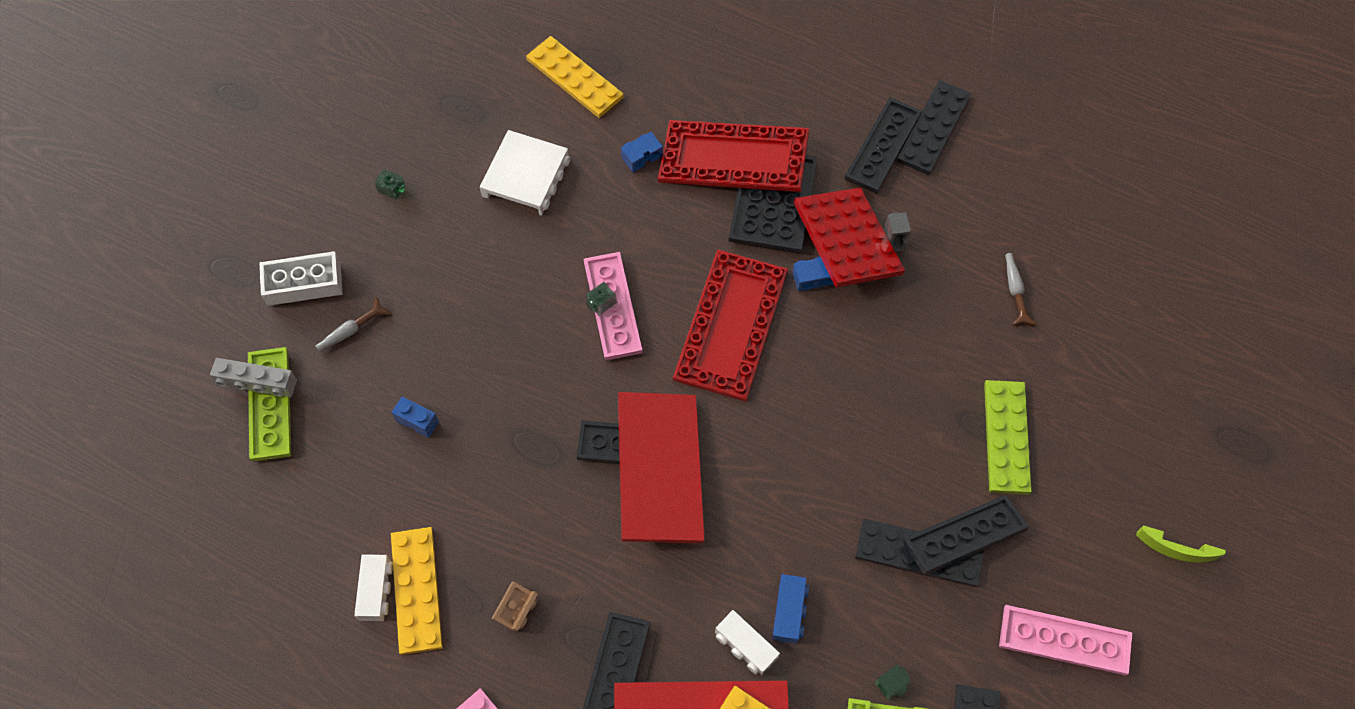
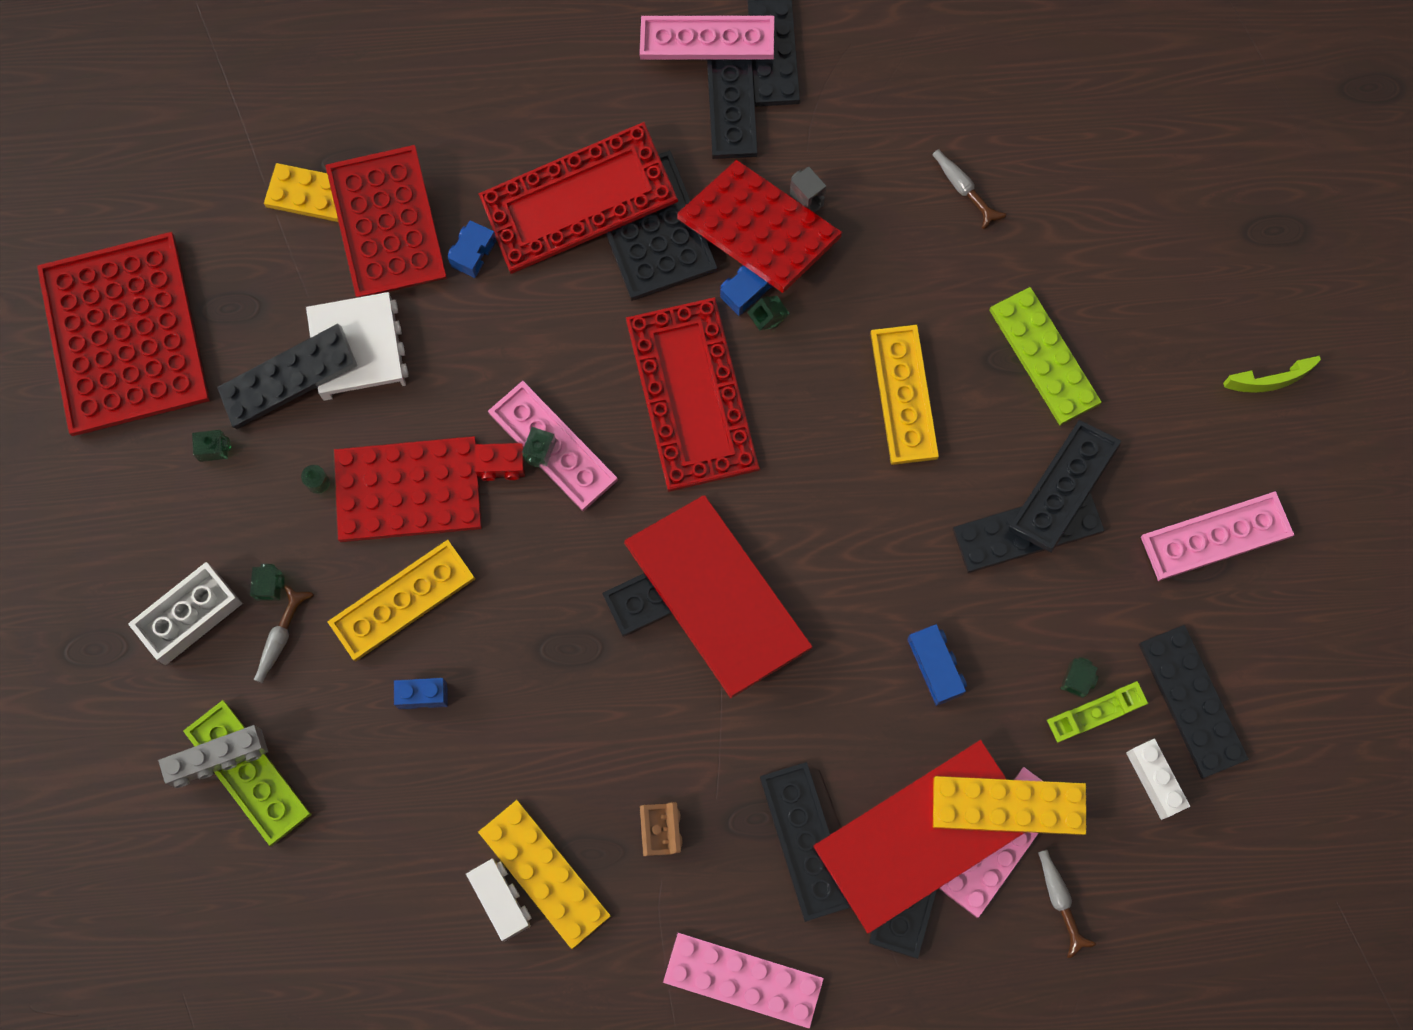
camera: 30 degrees left, 10 degrees up
(365, 289) = (266, 583): none -> clear green brick
(384, 89) = (122, 334): none -> red plate
(441, 240) = (315, 479): none -> clear green brick
(444, 349) = (401, 600): none -> yellow plate
(467, 166) = (287, 376): none -> black plate
(498, 281) = (407, 489): none -> red plate
(568, 295) = (499, 461): none -> red bracket
(595, 104) = (386, 221): none -> red plate
(746, 643) = (915, 725): white brick -> none
(818, 297) = (768, 313): none -> clear green brick
(883, 406) = (904, 394): none -> yellow plate
(889, 98) = (706, 37): none -> bright pink plate

